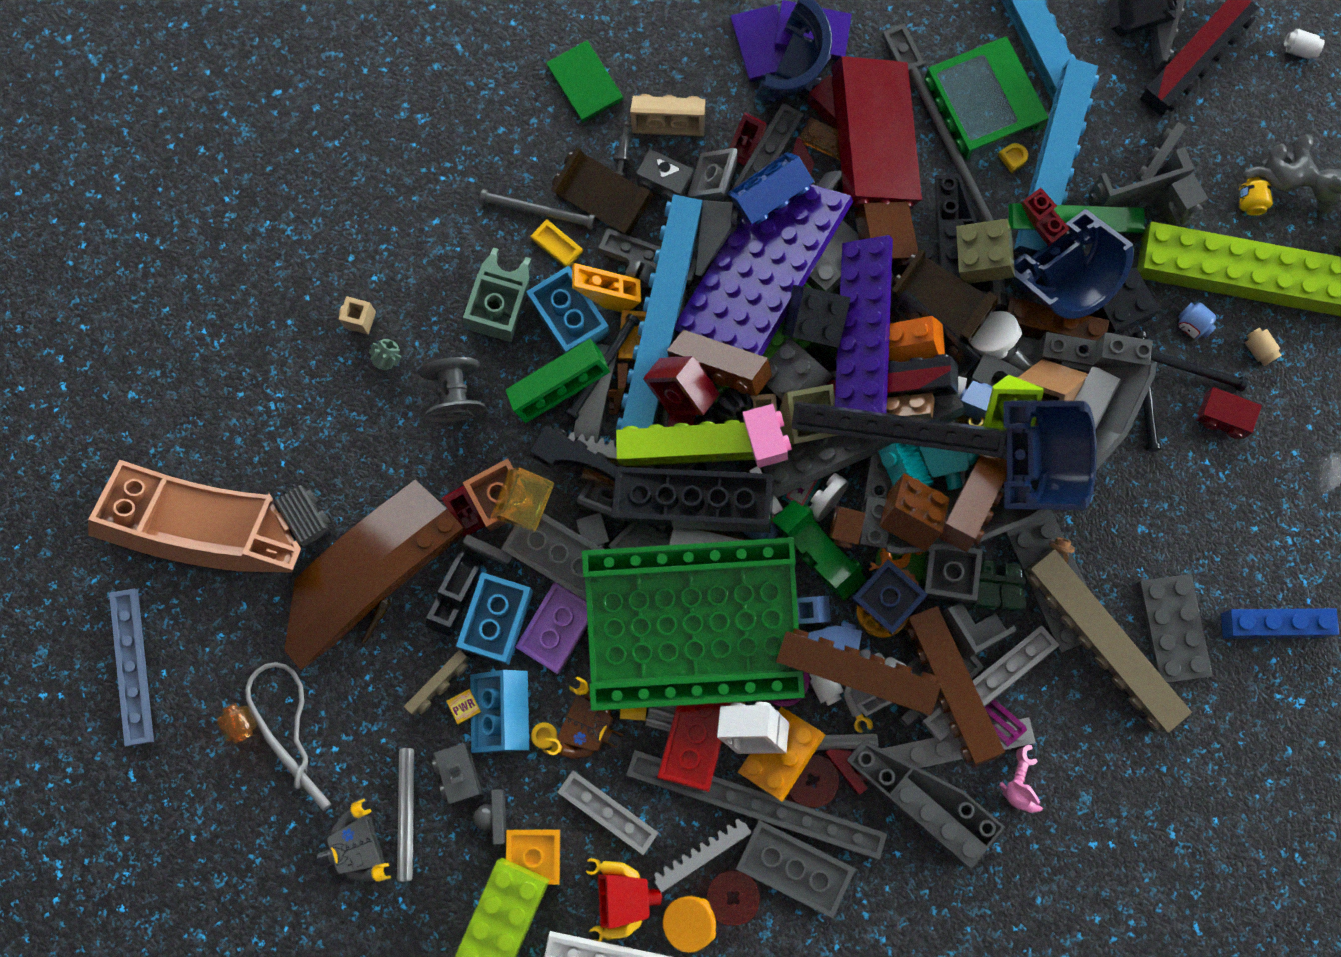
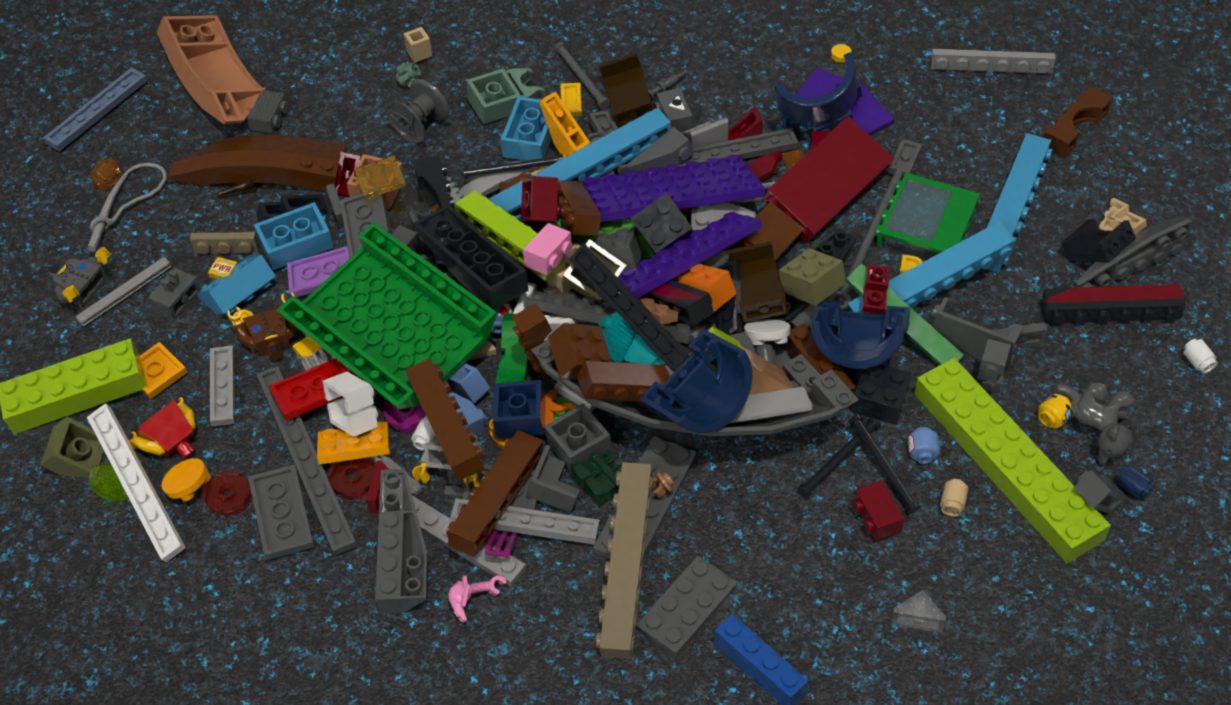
camera: 45 degrees right, 25 degrees down
(493, 817) = (164, 330): dark grey tile -> none
(557, 380) = (479, 151): green brick -> none
(584, 81) = (689, 38): green tile -> none
(668, 115) = (713, 84): tan slope -> none
(700, 858) = (237, 453): light grey gear -> none
(771, 188) = (722, 150): blue slope -> none

